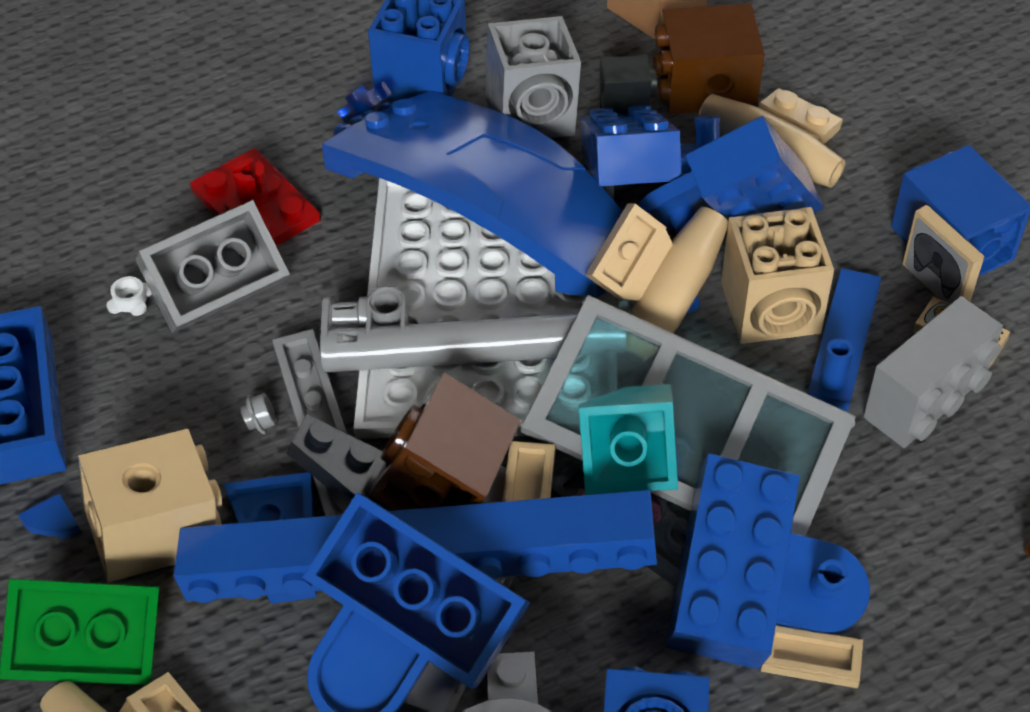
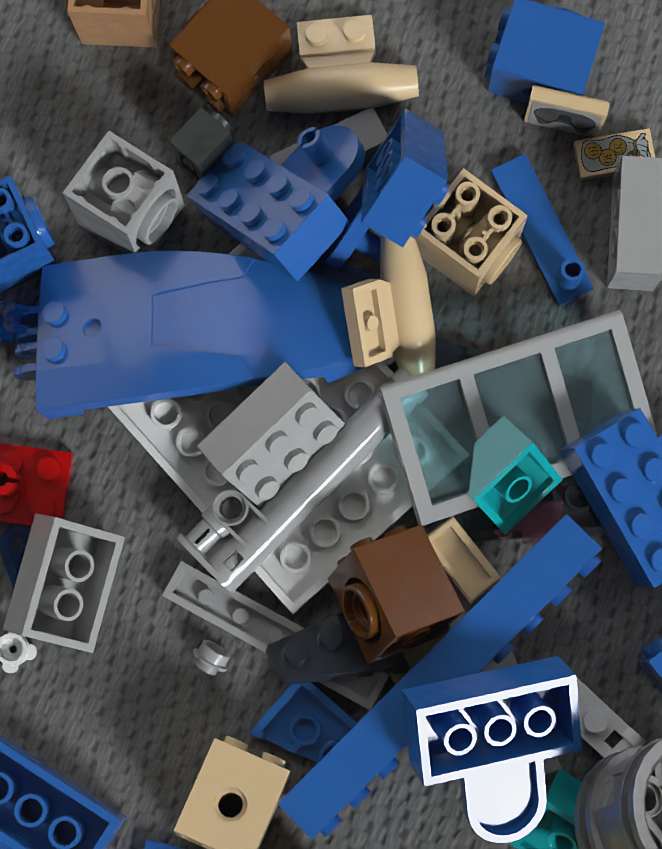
camera: 35 degrees left, 30 degrees up
(470, 272) = (271, 435): none -> light grey brick

